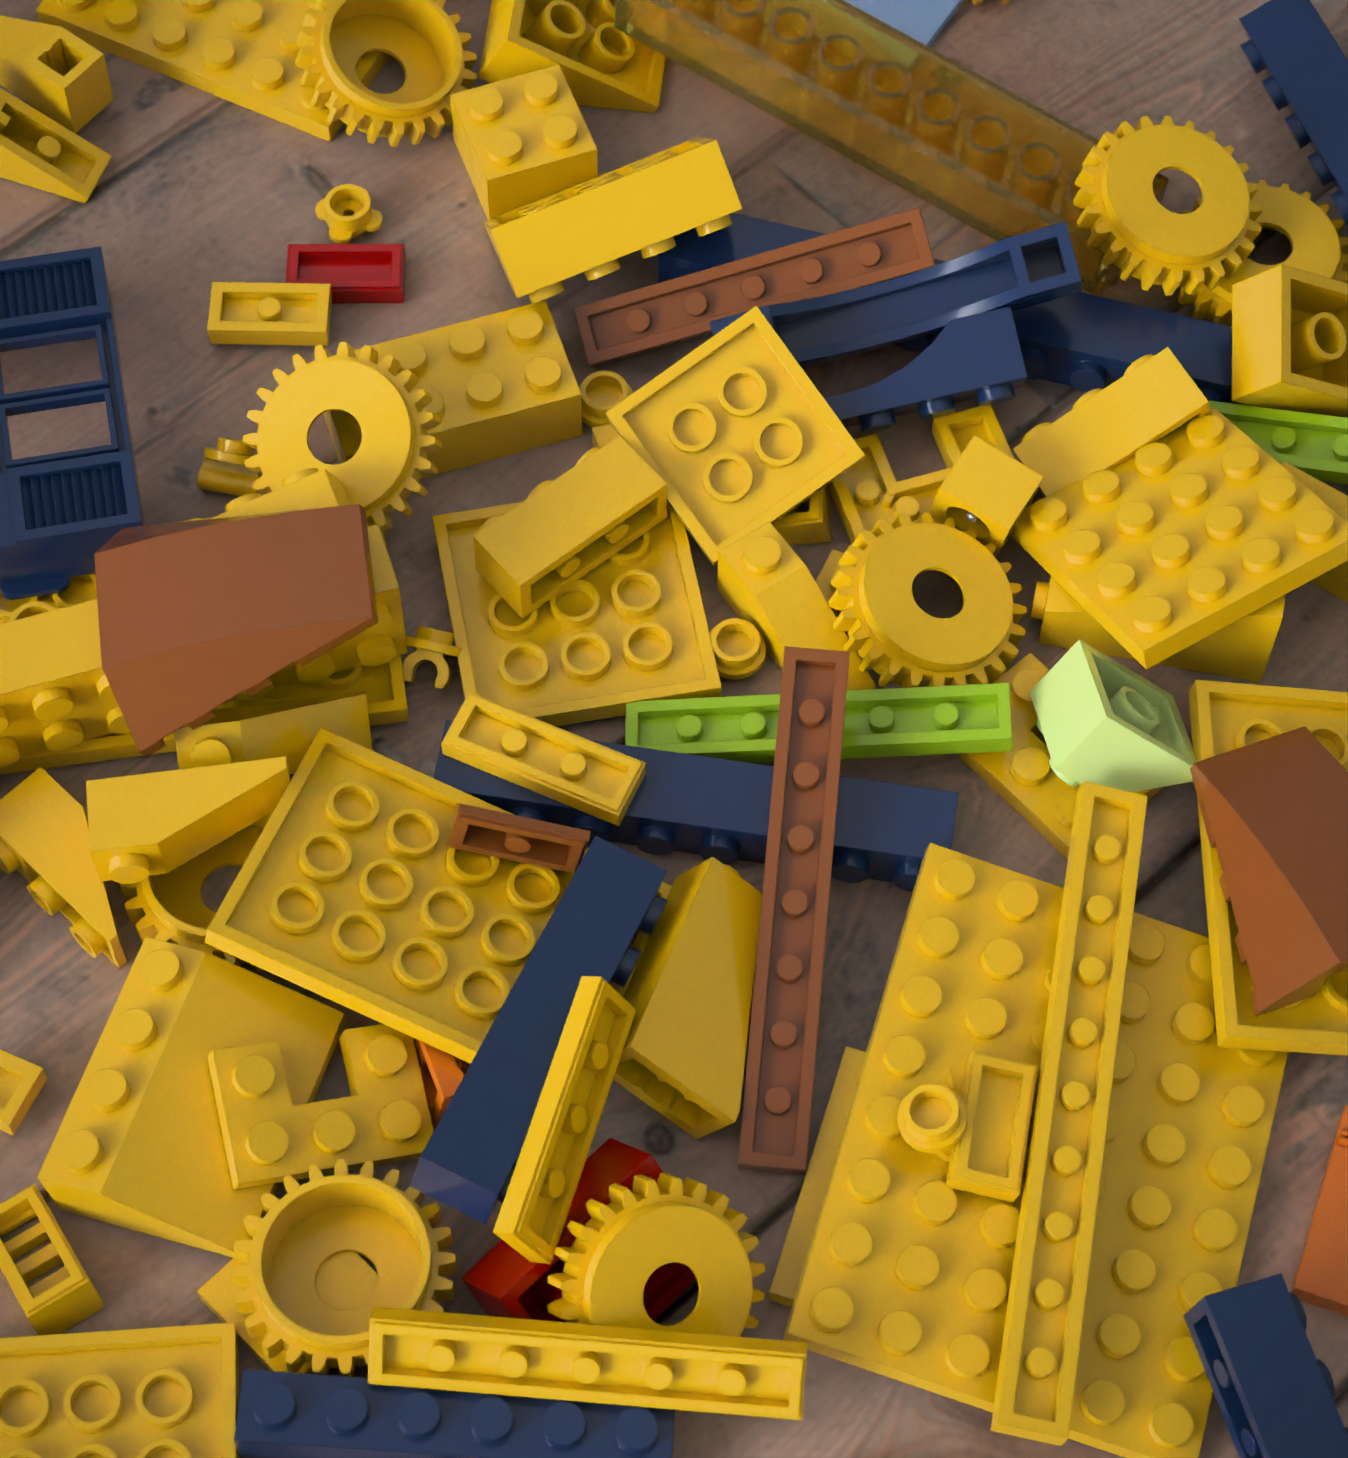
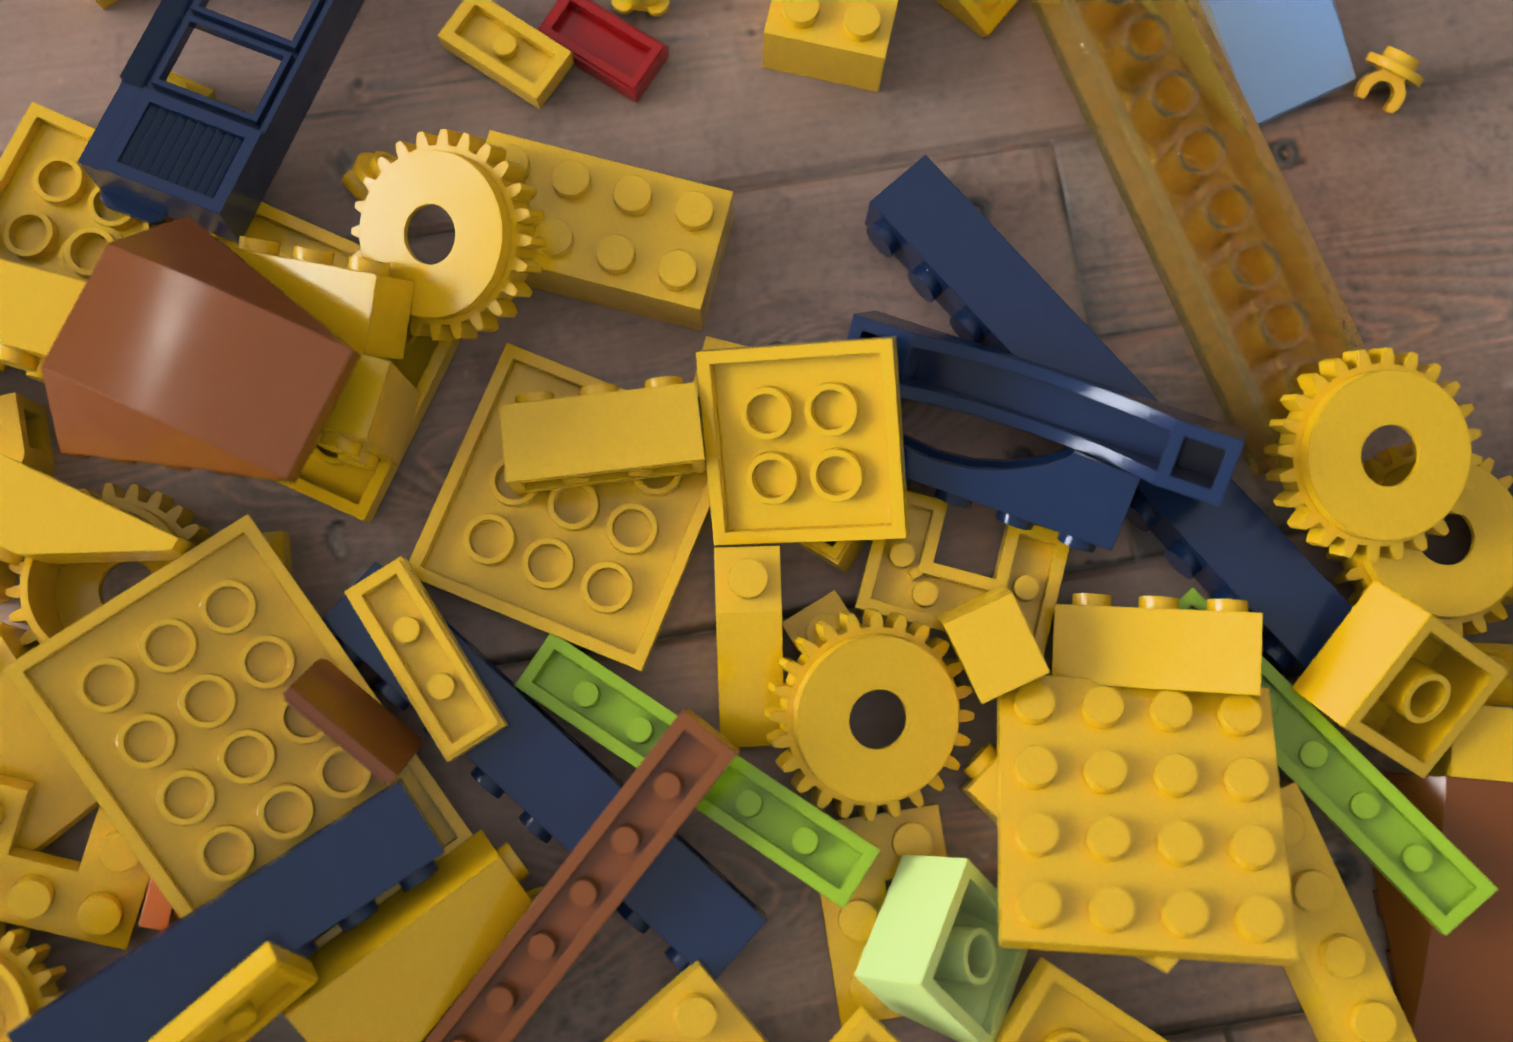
camera: 30 degrees right, 20 degrees up
(273, 730) = (215, 501): yellow slope -> none
(431, 646) = (425, 469): yellow plate -> none
(600, 393) = (737, 313): yellow plate -> none
(614, 216) = (843, 141): yellow slope -> none
(737, 648) = (686, 633): yellow plate -> none
(796, 272) = (936, 296): dark orange plate -> none

